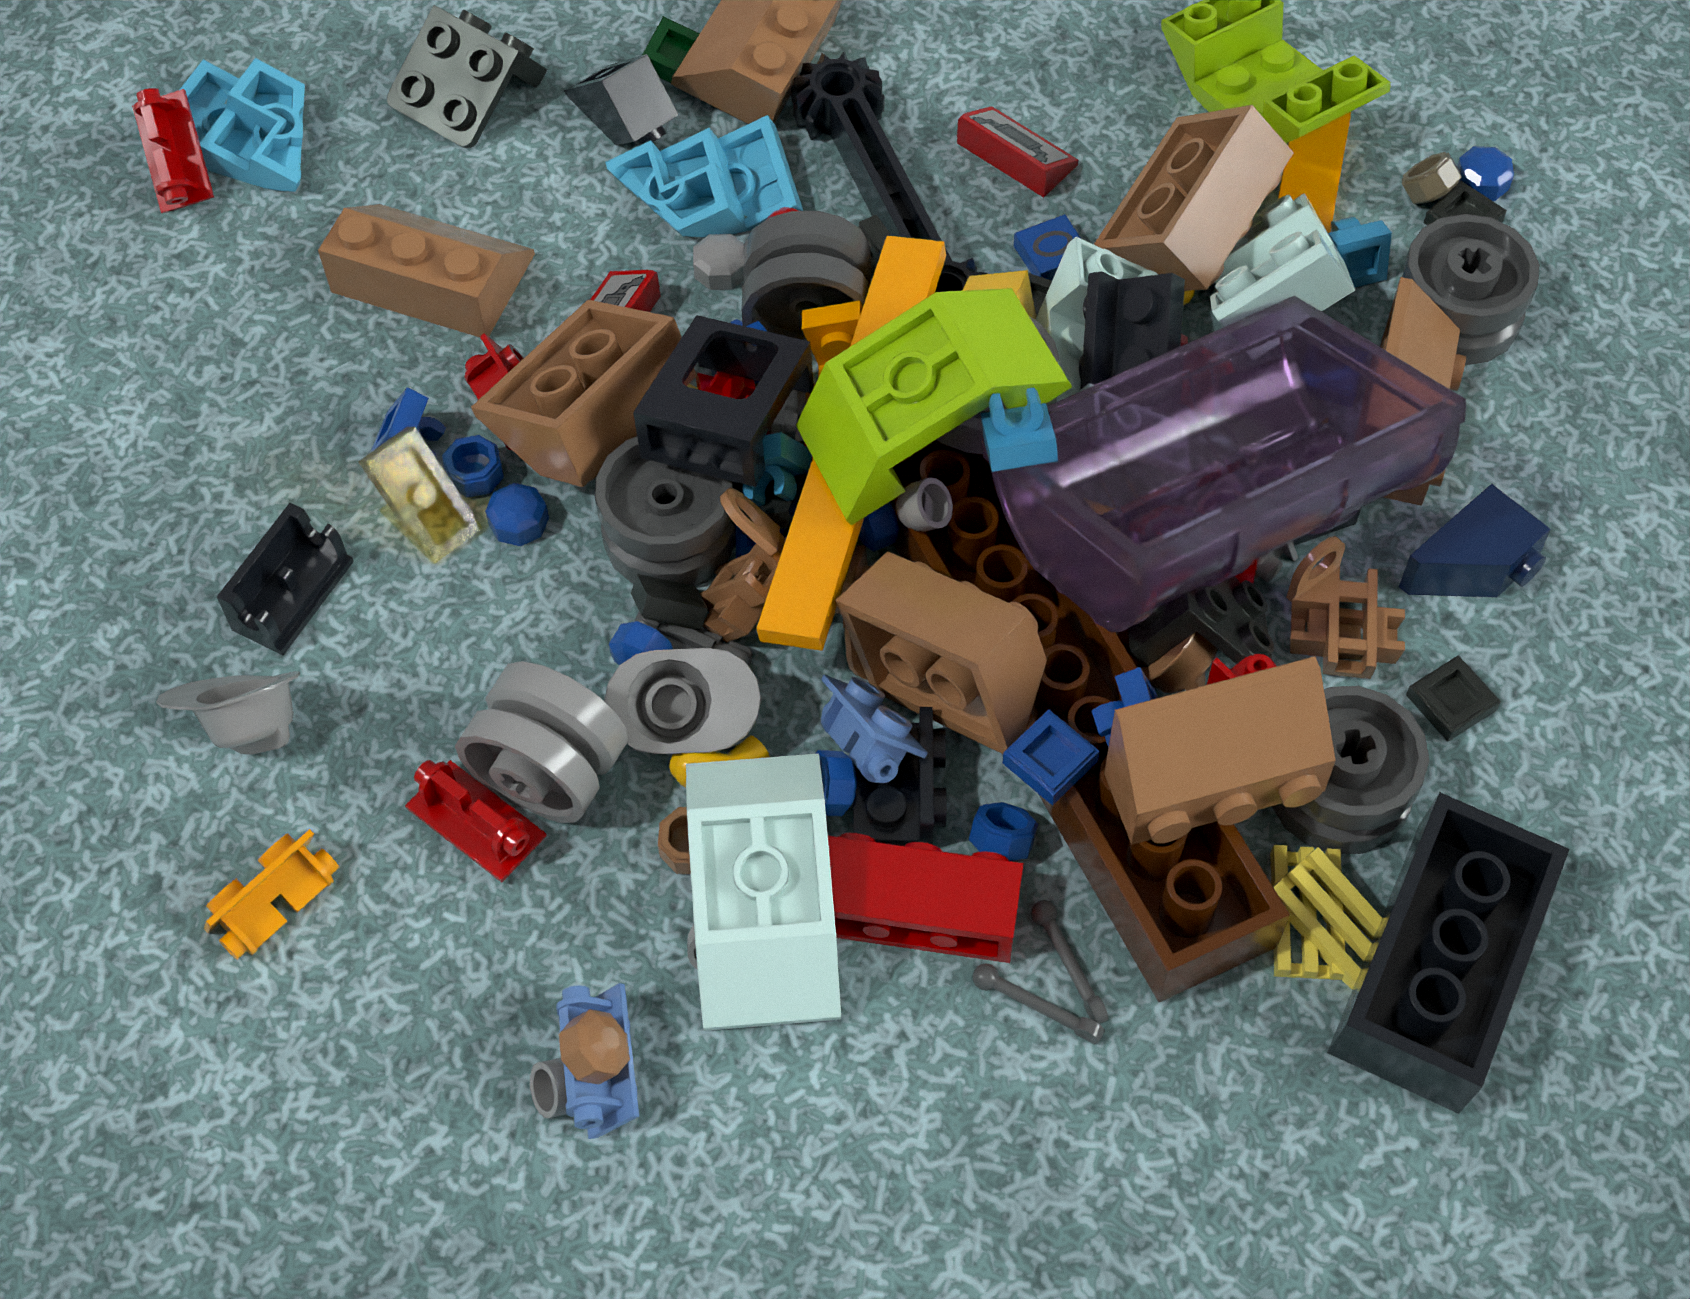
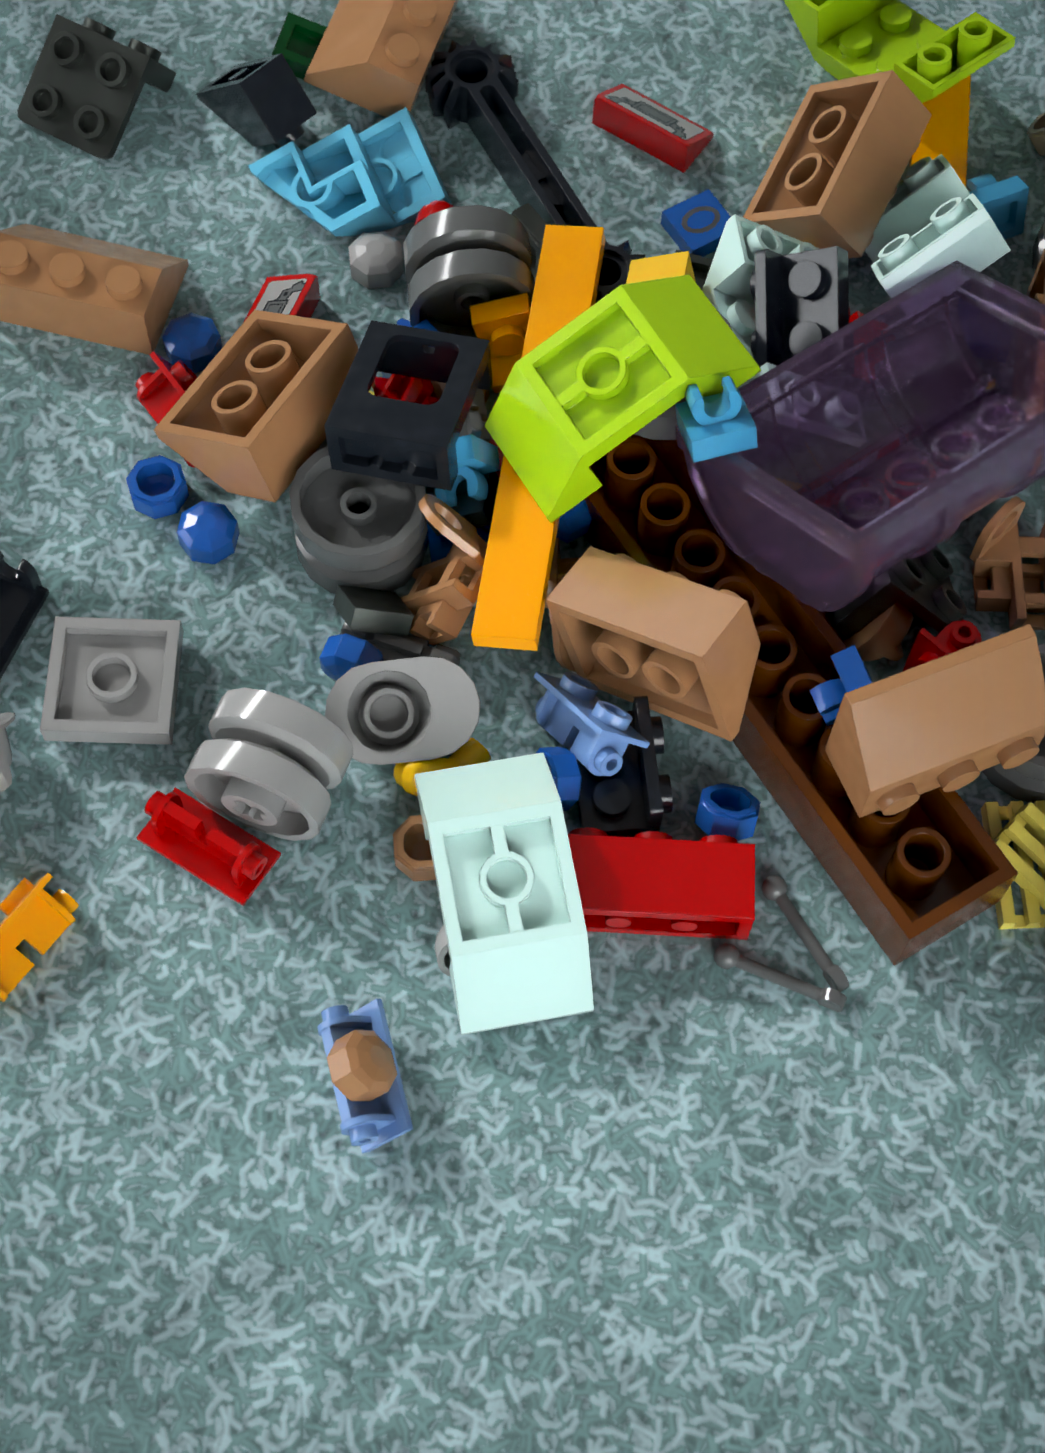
camera: 10 degrees left, 5 degrees up
(402, 650) = (112, 680): none -> light grey plate
(408, 412) = (80, 457): blue tile -> none
(419, 495) = (109, 521): clear yellow slope -> none
(525, 325) = (192, 341): none -> blue tile
(549, 1088) = (319, 1107): light grey hinge -> none
(925, 505) = (620, 497): light grey hinge -> none
(1050, 757) = (772, 738): blue tile -> none

